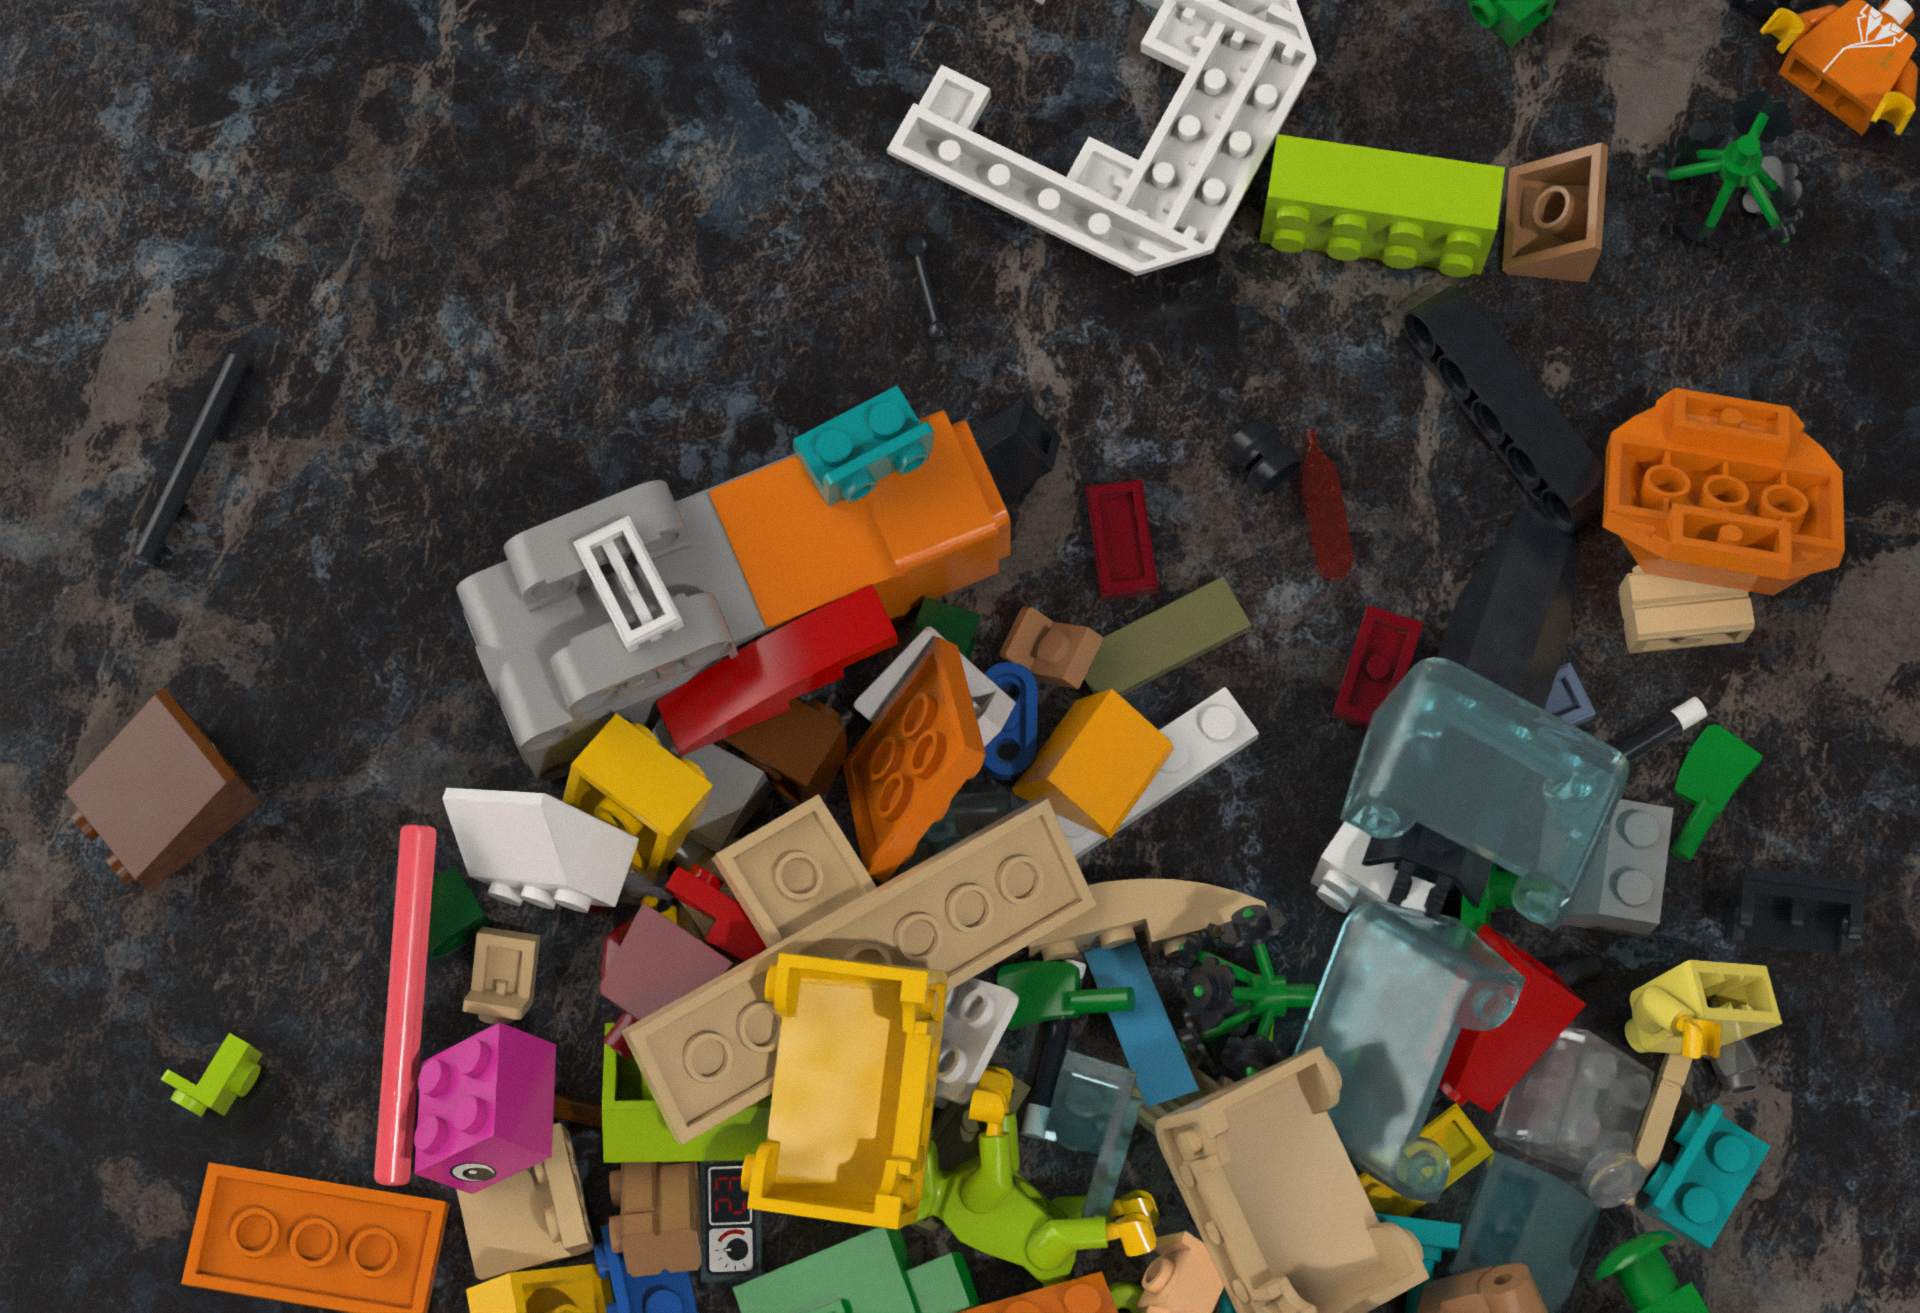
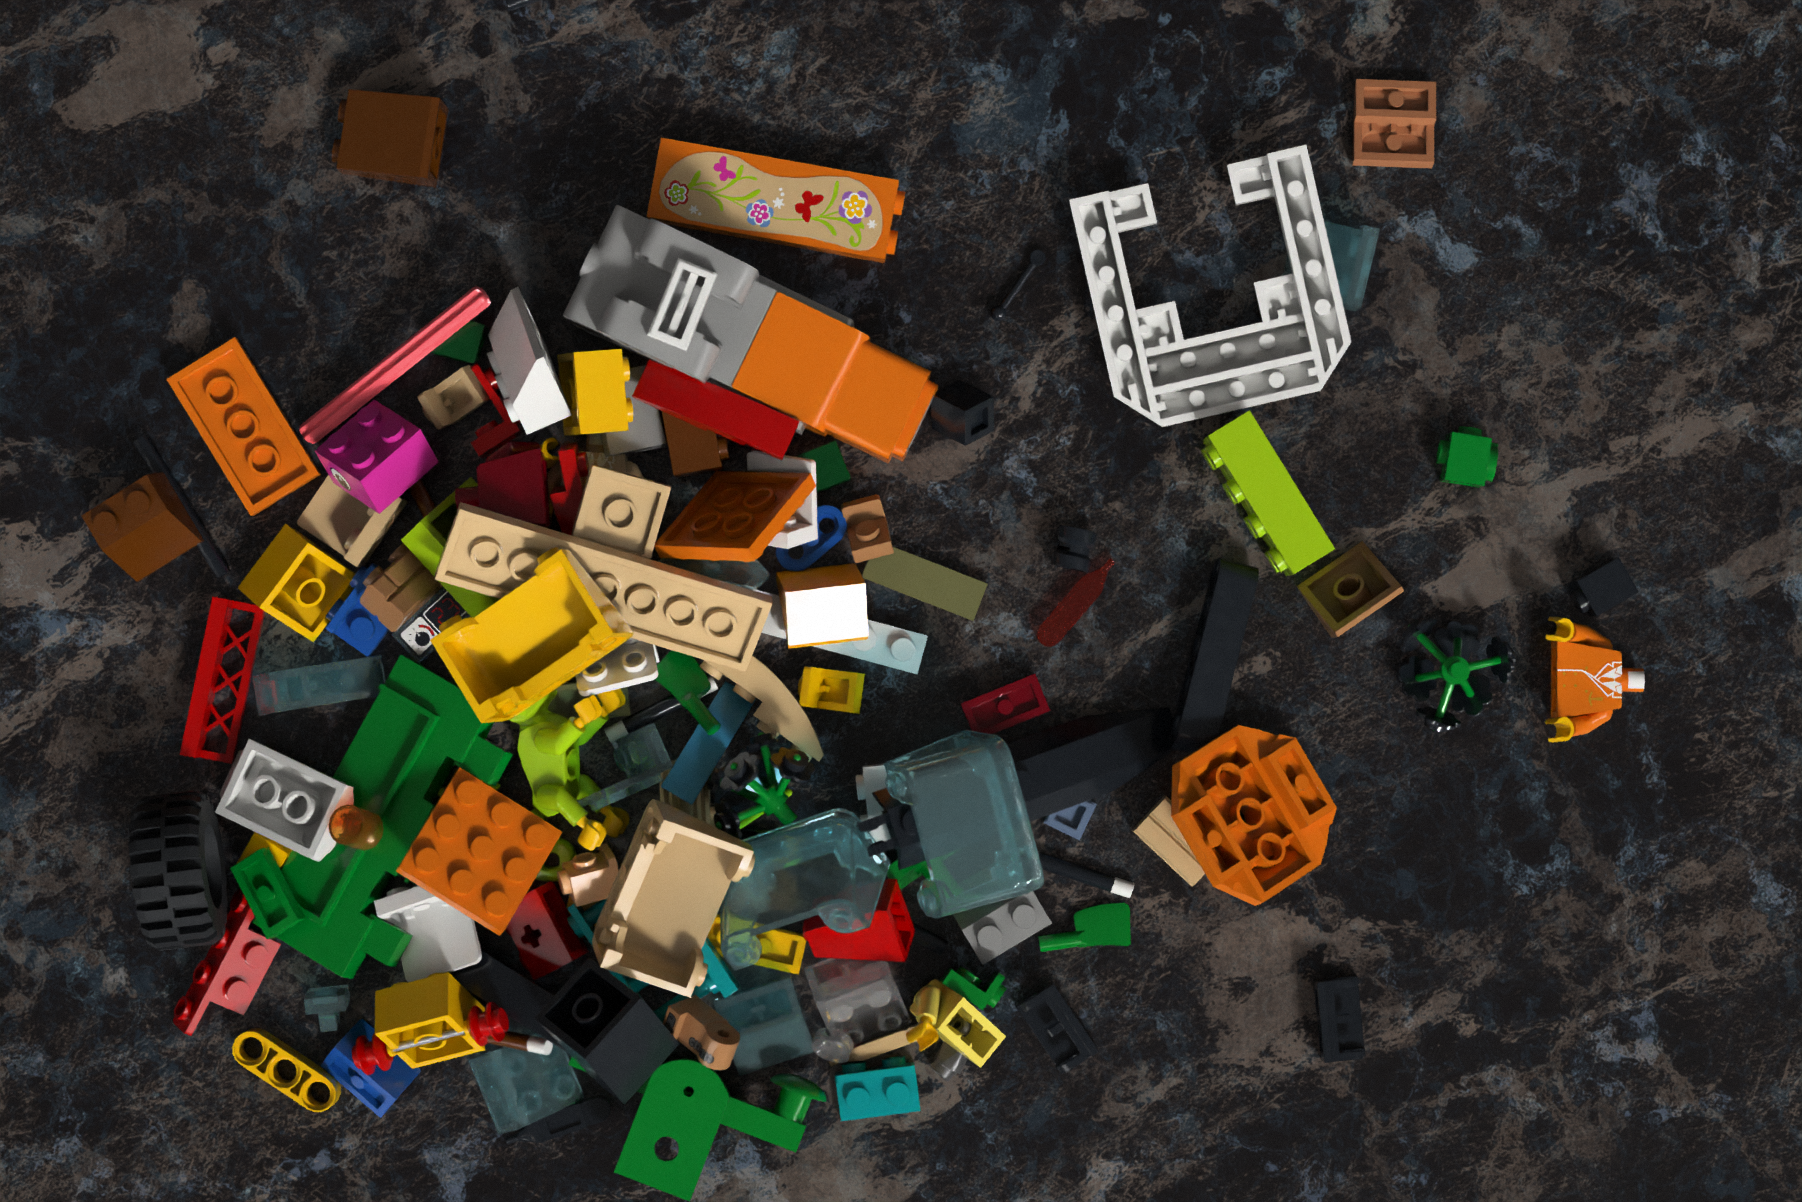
camera: 45 degrees right, 15 degrees up
(228, 1075) = (286, 306): lime bracket -> none
(580, 968) = (493, 435): none -> red bracket
(636, 426) = (775, 200): none -> brick
(864, 446) = (870, 352): teal bracket -> none
(1121, 540) = (964, 511): dark red tile -> none
(1197, 838) = (831, 689): none -> yellow bracket
(1690, 938) = (967, 986): none -> green bracket

